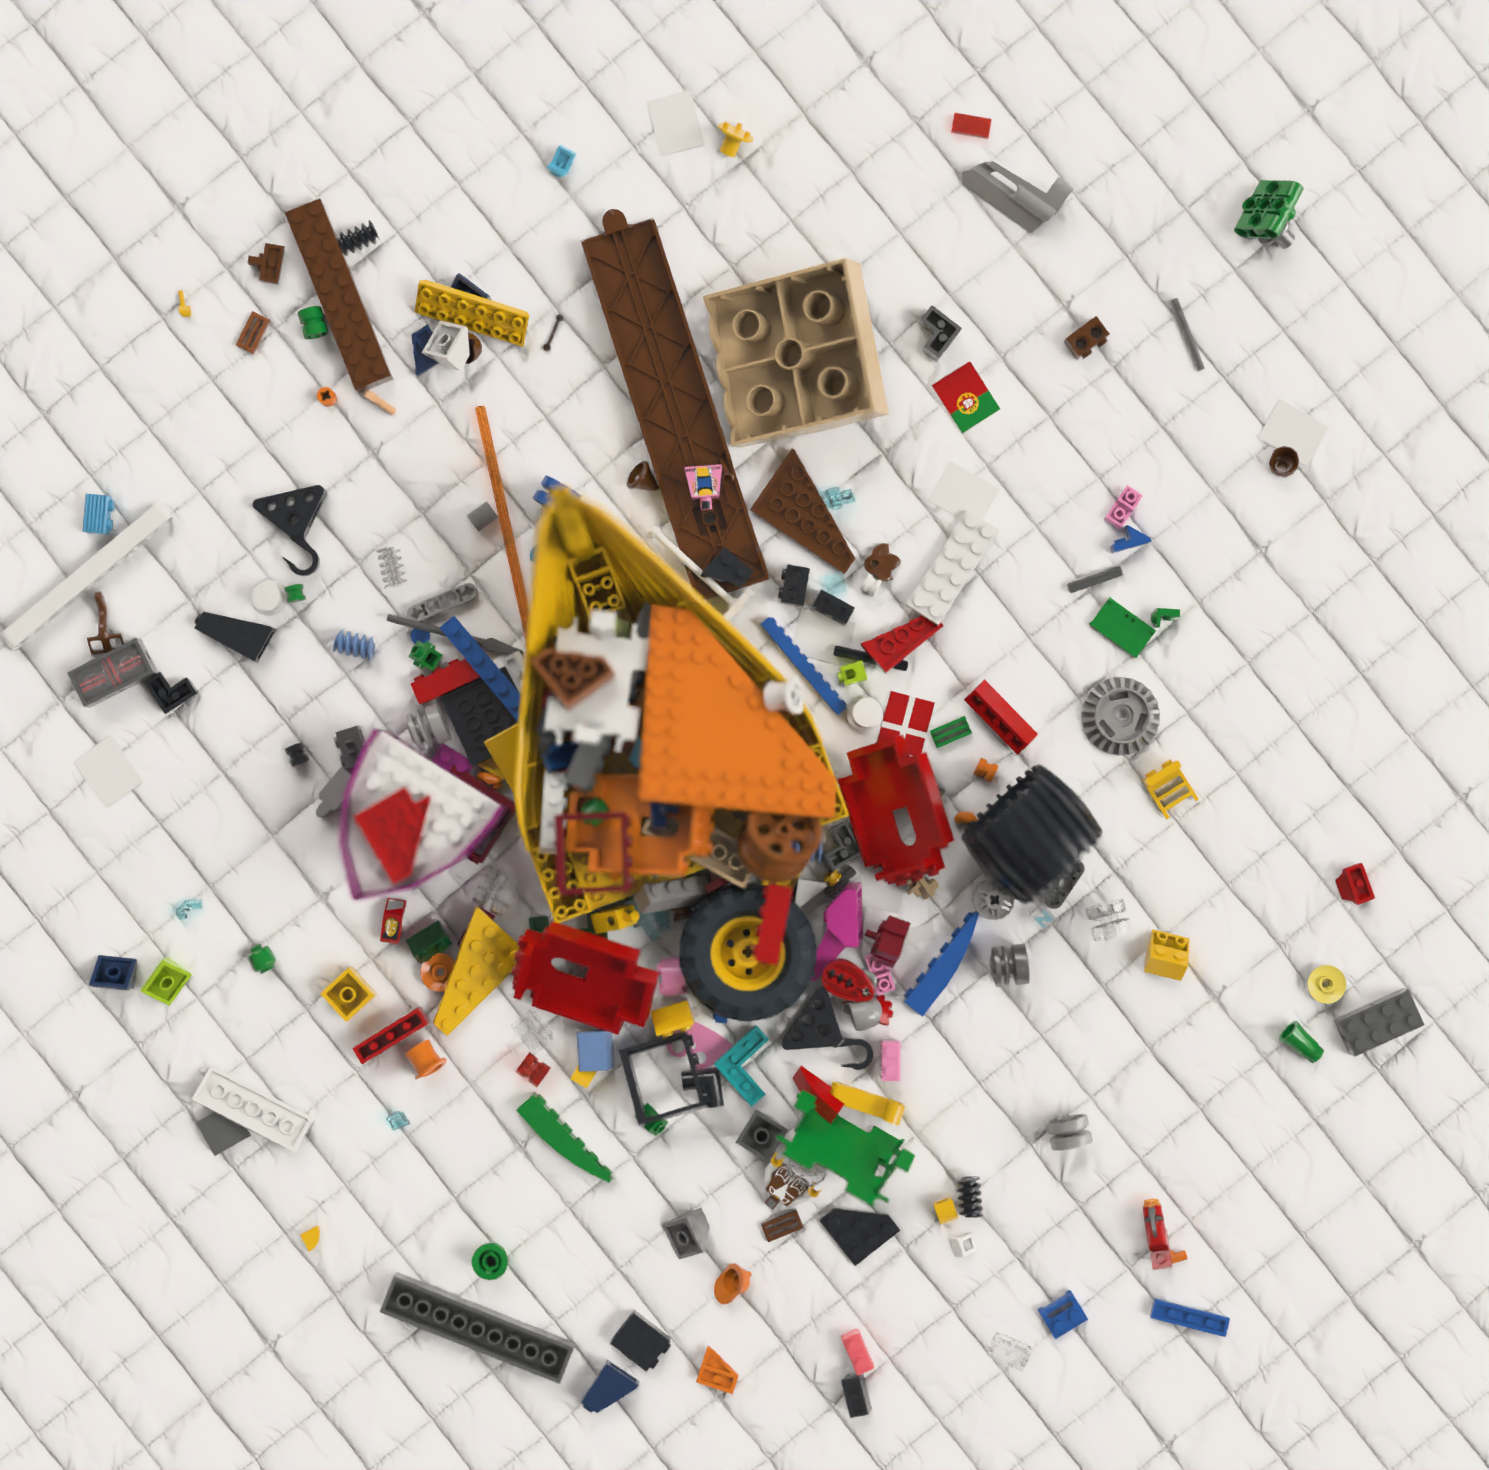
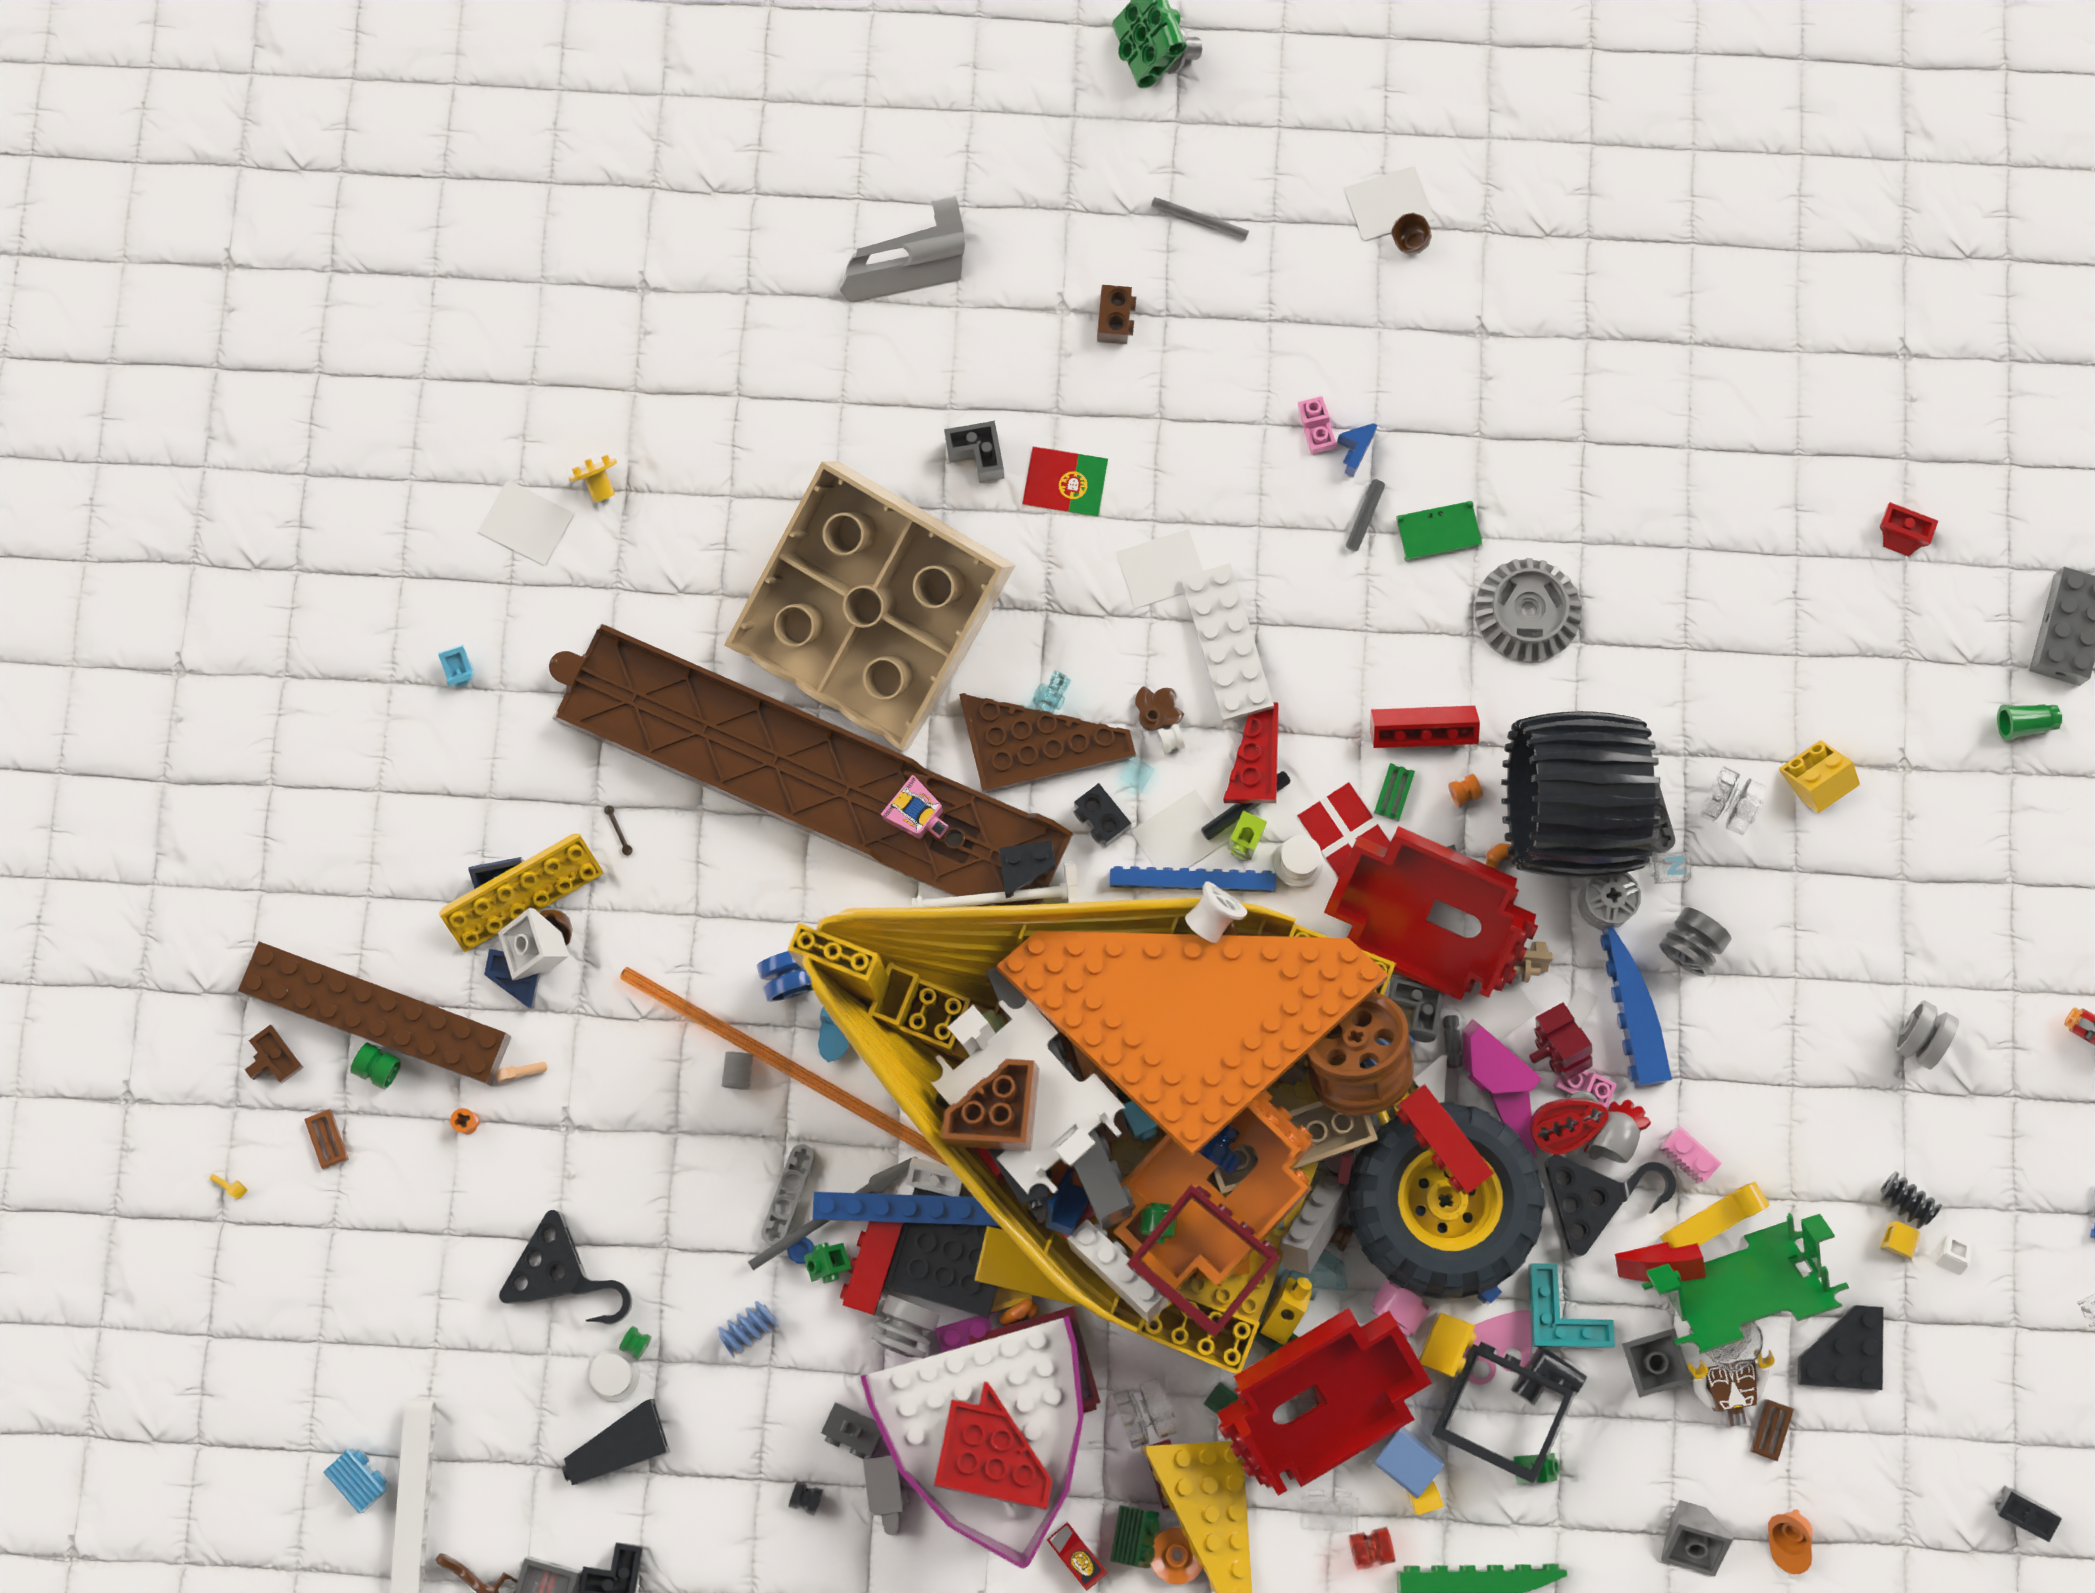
camera: 45 degrees left, 10 degrees down
(358, 237) = (334, 939): black piece -> none
(391, 566) = (702, 1214): clear piece -> none
(642, 478) = (849, 871): reddish brown hat -> none
(832, 877) = (1441, 1045): yellow bush -> none
(833, 607) = (1160, 796): black brick -> none
(857, 1351) = (1980, 1470): coral brick -> none
(971, 125) = (801, 243): clear red tile -> none
(1156, 779) = (1627, 621): yellow plate -> none
(1167, 614) = (1463, 476): green bracket -> none
(1335, 988) = (1995, 635): light yellow dish -> none

